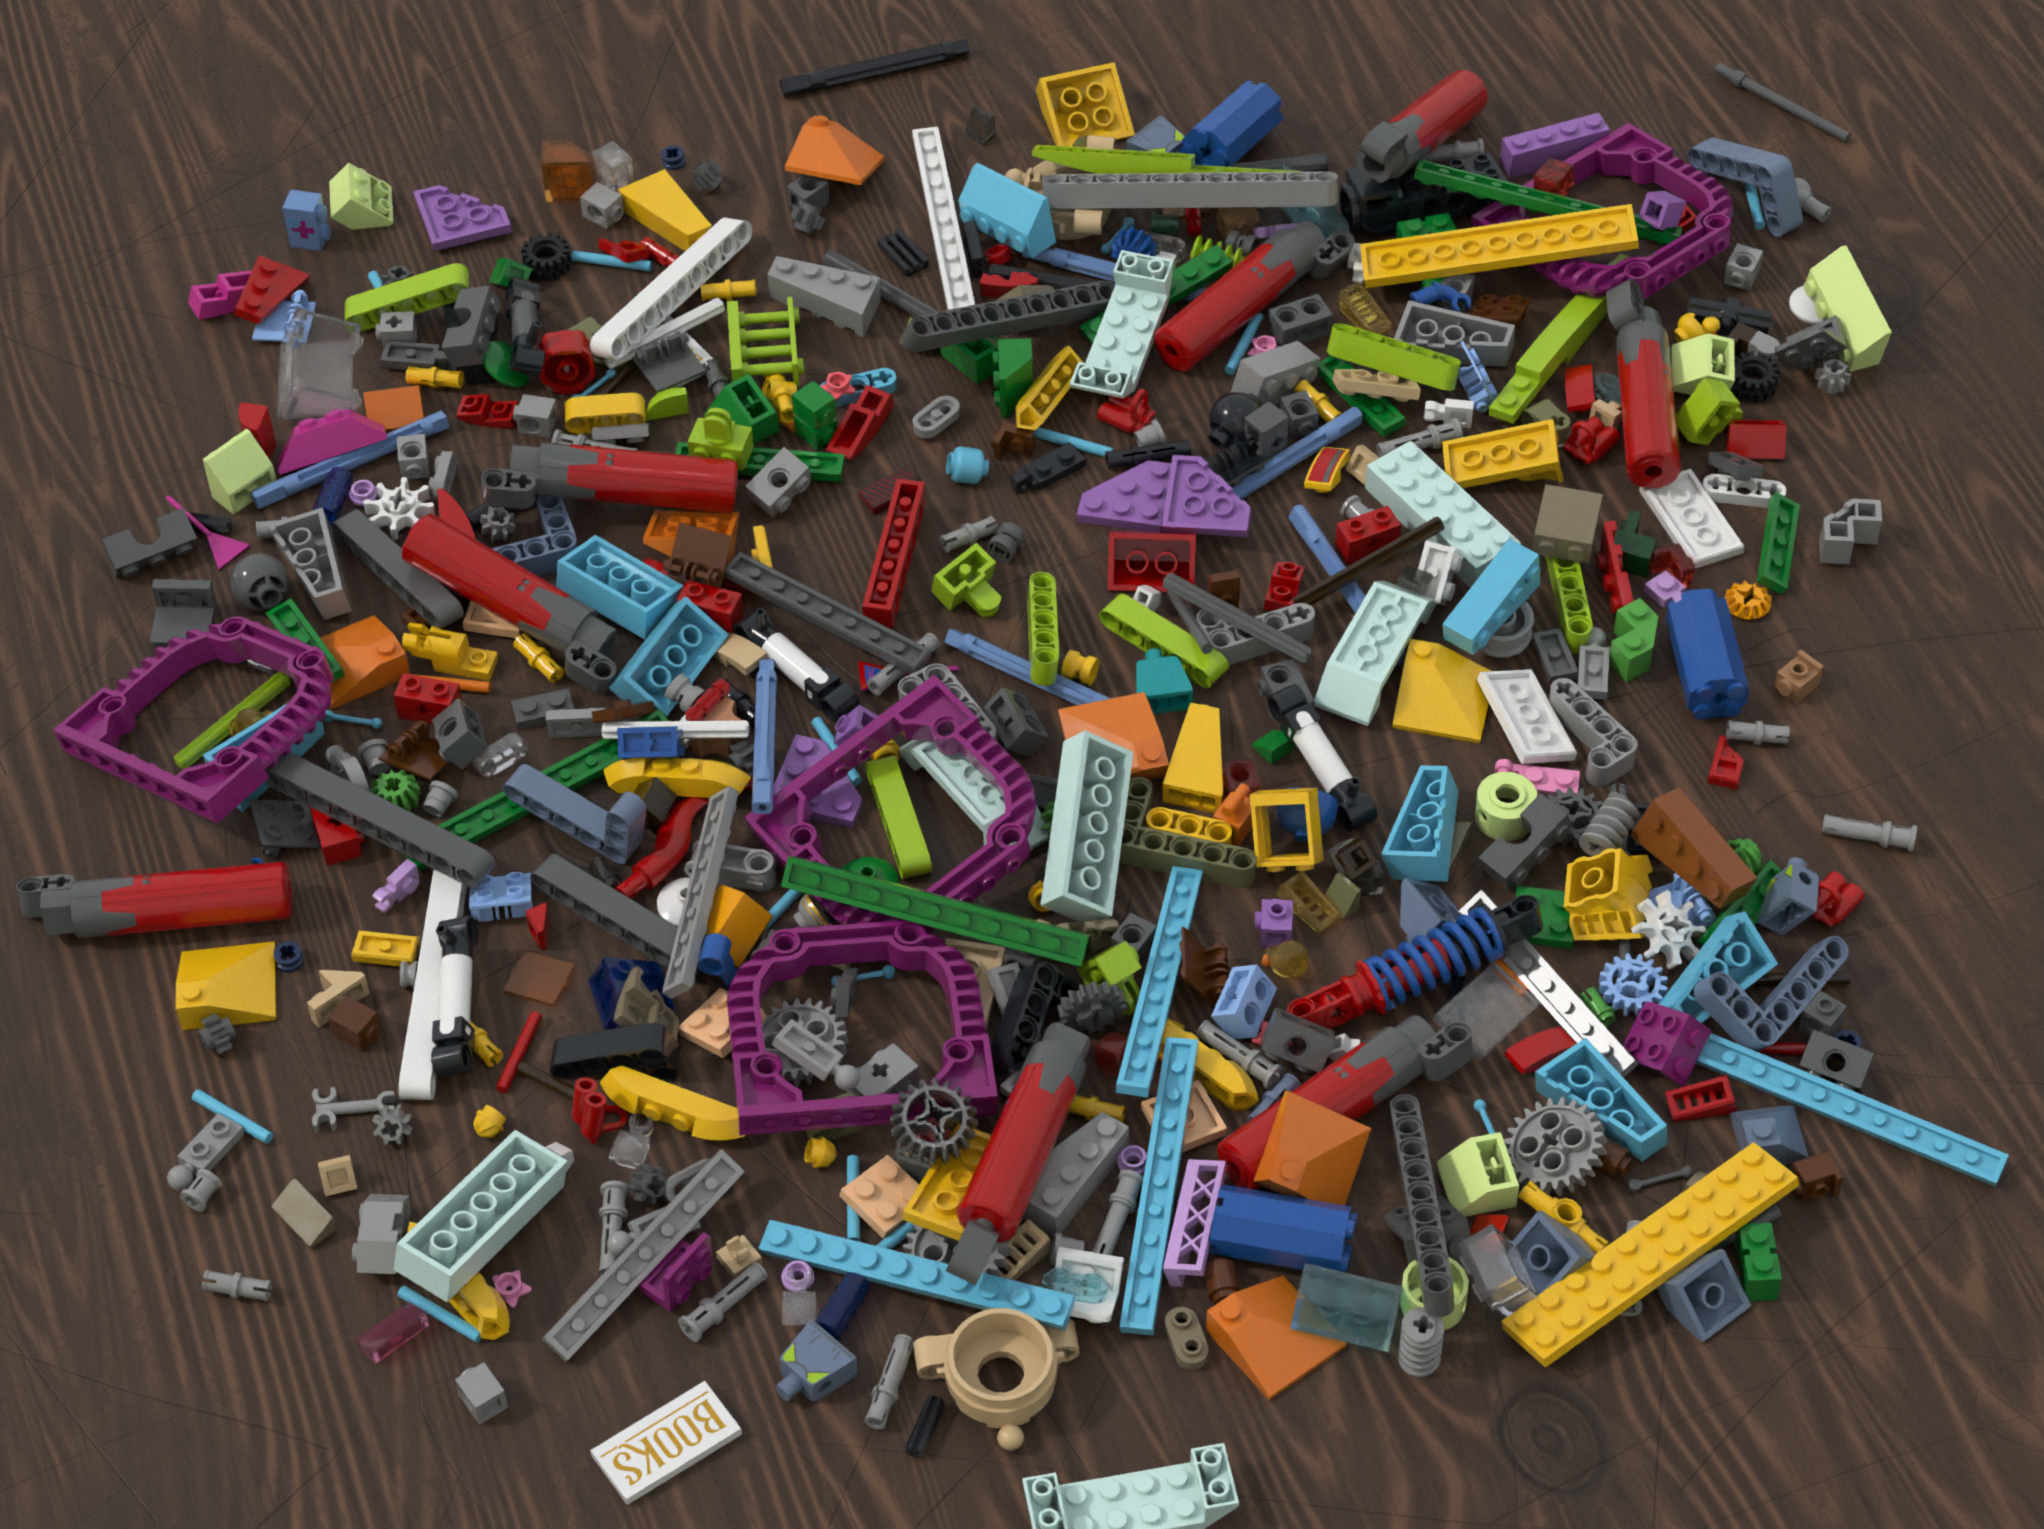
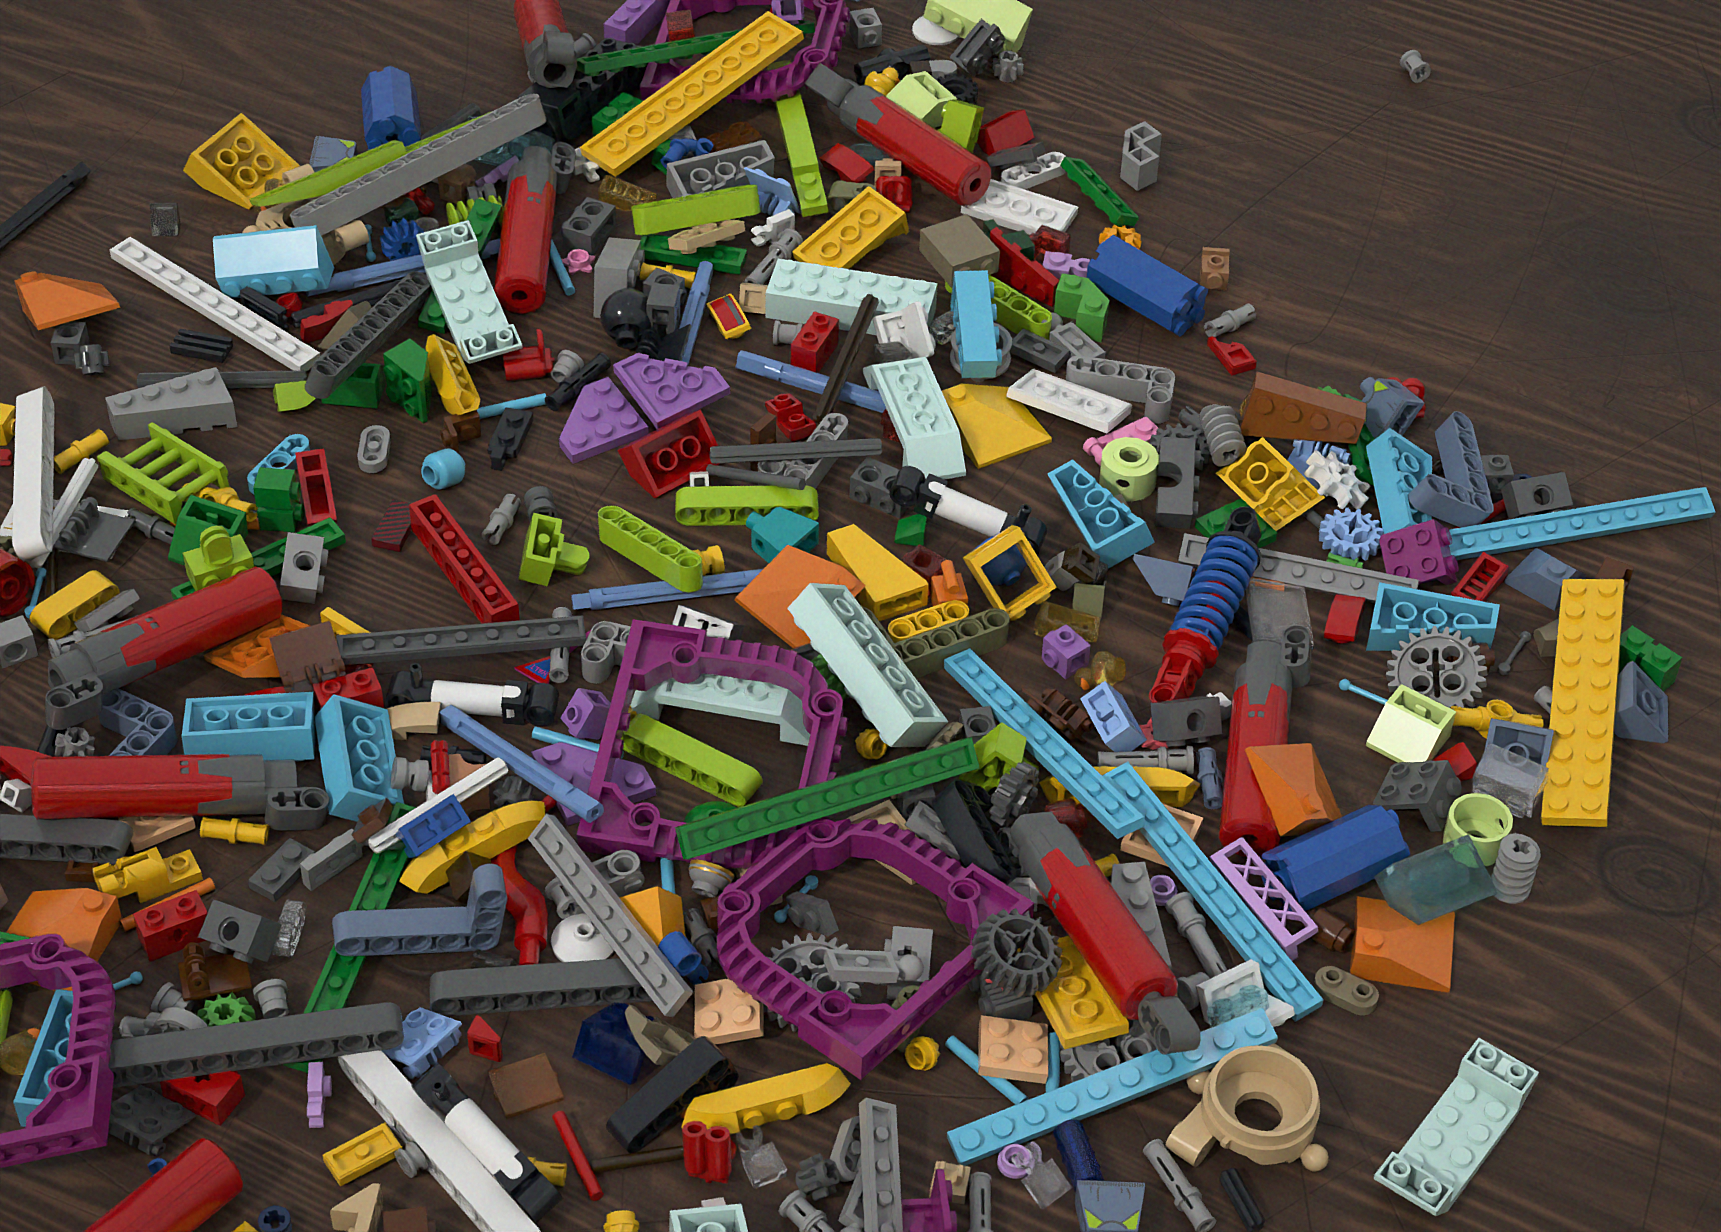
camera: 45 degrees left, 5 degrees down
(667, 404) = (126, 564): lime brick -> none
(841, 379) = (263, 461): coral plate -> none
(1422, 1206) = (1417, 768): dark grey beam -> none
(1883, 833) = (1386, 337): light grey pin -> none

